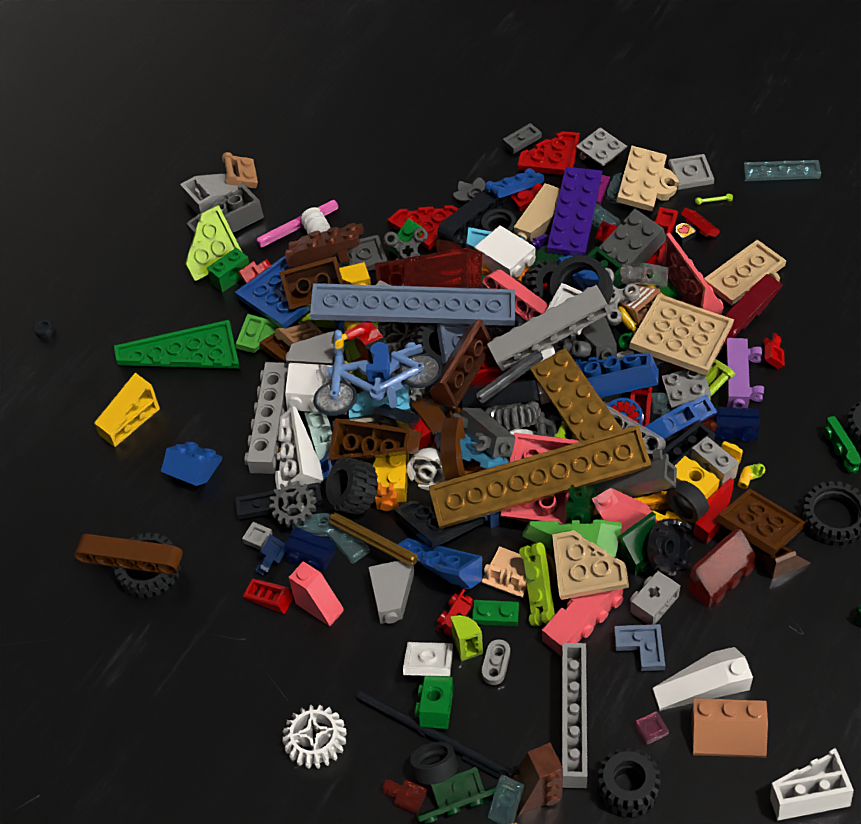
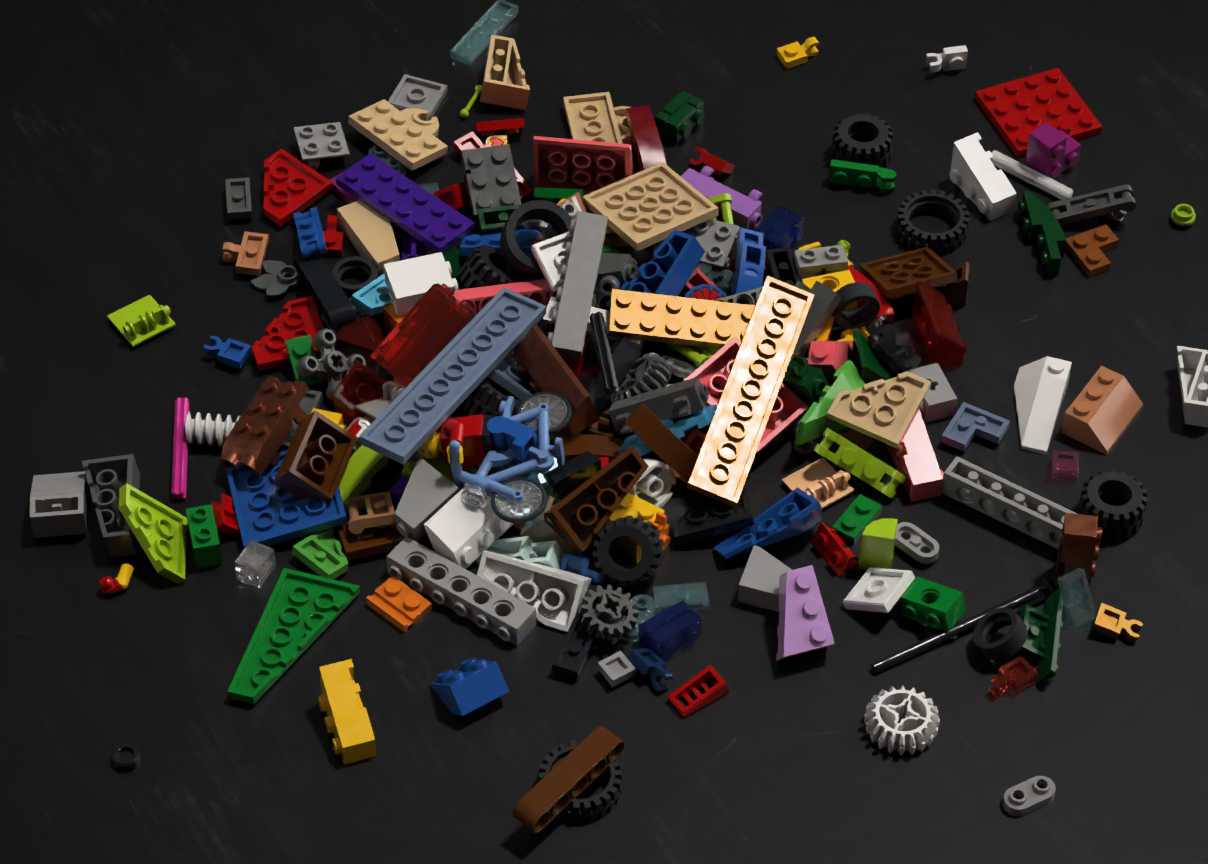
camera: 65 degrees left, 5 degrees down
(173, 254) = (119, 583): none -> arm
(224, 305) = (255, 564): none -> clear brick
(242, 392) = (399, 603): none -> orange plate
(244, 169) = (46, 460): medium nougat plate -> none
(314, 594) = (737, 643): coral slope -> none
(360, 619) = (801, 615): none -> lavender wedge
(373, 539) = (706, 566): pearl gold axle -> none
(386, 152) = (142, 320): none -> lime hinge
(390, 202) = (229, 353): none -> blue plate
(479, 167) = (248, 254): none -> nougat plate
(636, 274) = (549, 191): clear torso -> none
(745, 197) = (503, 76): none -> tan wedge
(799, 310) = (679, 117): none -> dark green brick

